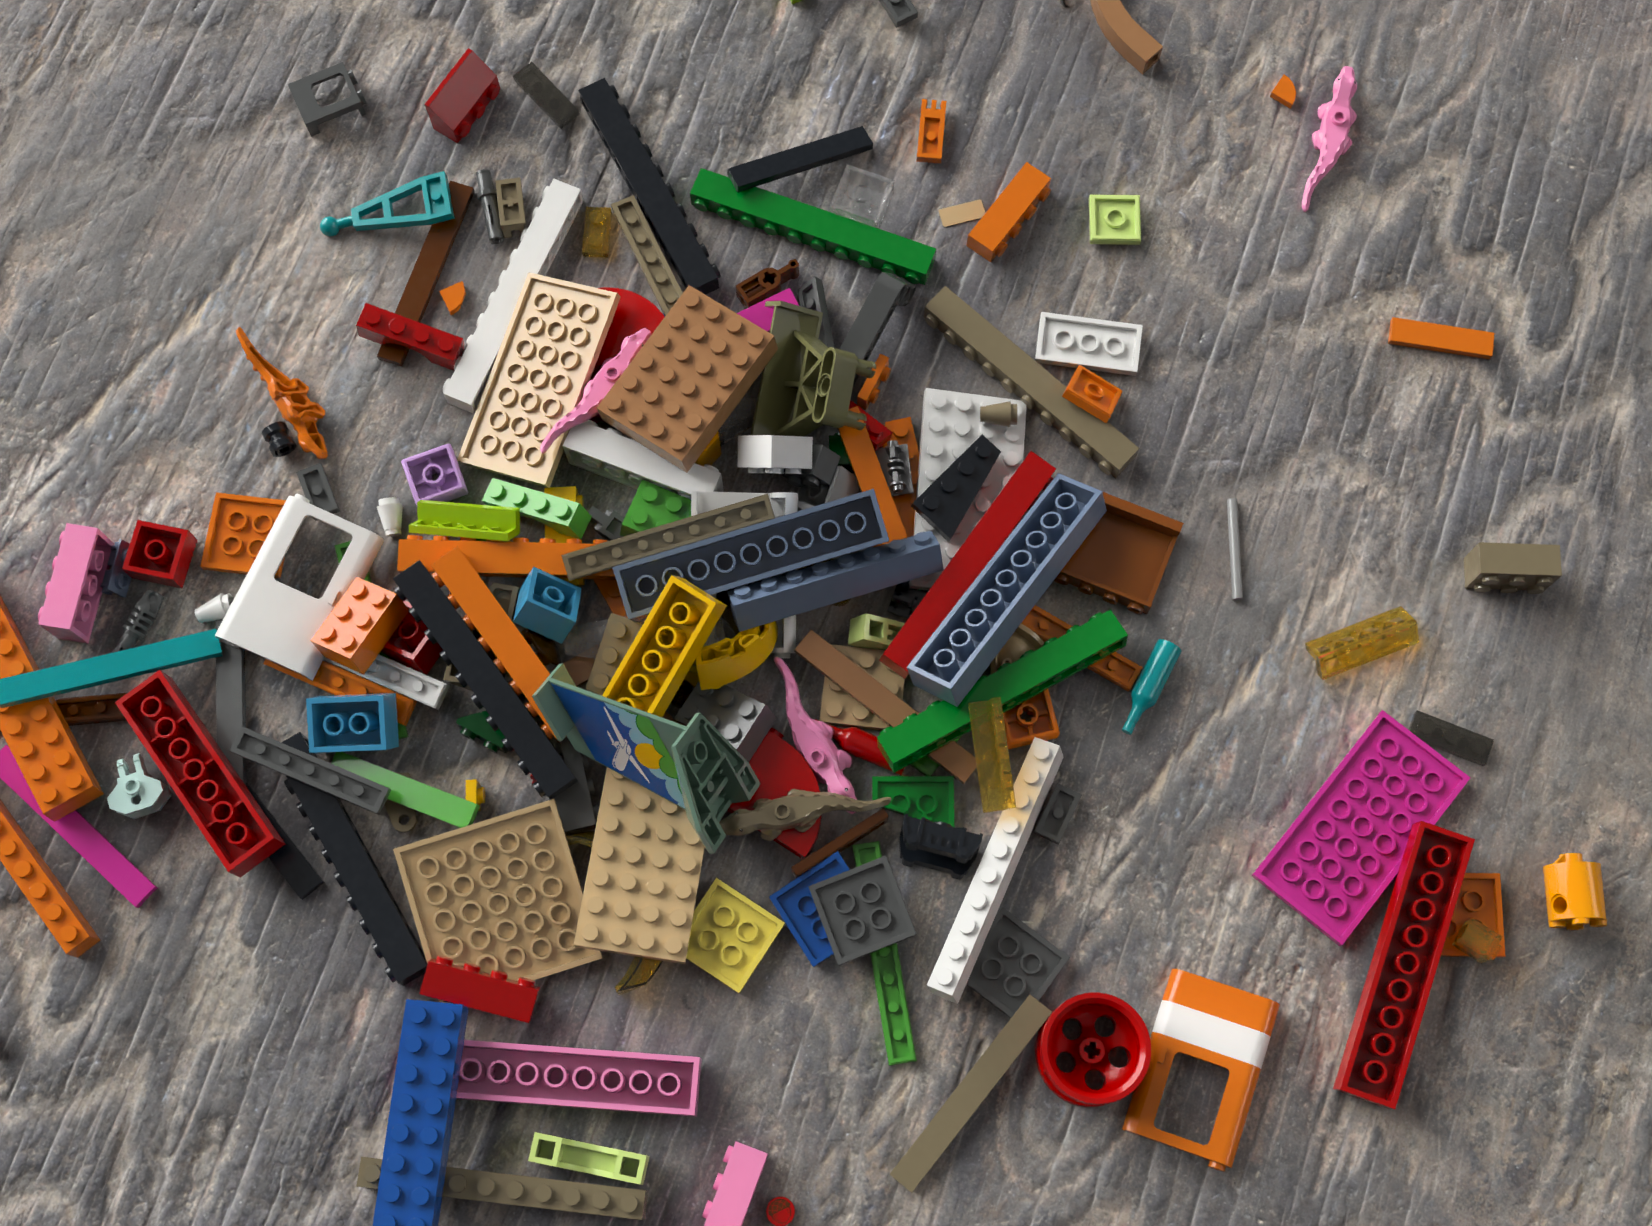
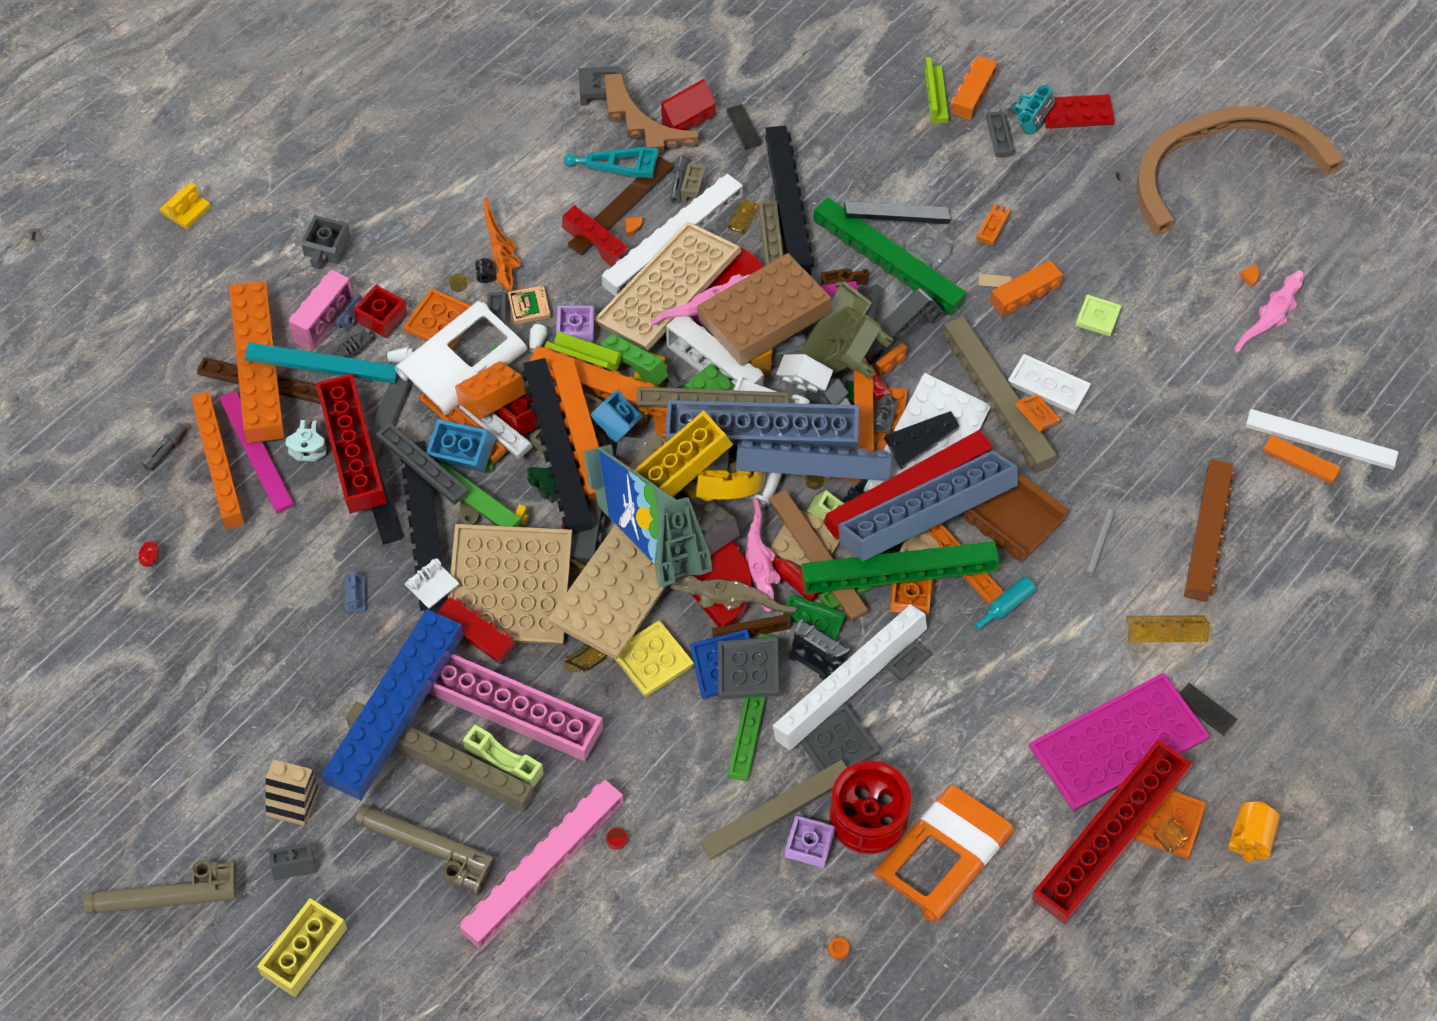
camera: 20 degrees right, 15 degrees down
(39, 473) = (325, 240): none -> dark grey hinge
(249, 468) = (458, 282): none -> clear yellow tile
(293, 989) = (354, 592): none -> sand blue hinge
(359, 468) = (529, 305): none -> light nougat tile
(395, 945) = (431, 583): none -> white hinge
(402, 143) = (638, 124): none -> medium nougat arch
(992, 755) = (873, 599): clear yellow fence -> none
(999, 414) = (968, 403): dark tan cone -> none
(1044, 1108) = (813, 853): none -> lavender brick
(1365, 484) = (1208, 531): none -> dark orange brick
(1455, 300) = (1322, 439): none -> white tile
(1512, 567) = (1292, 612): dark tan brick -> none

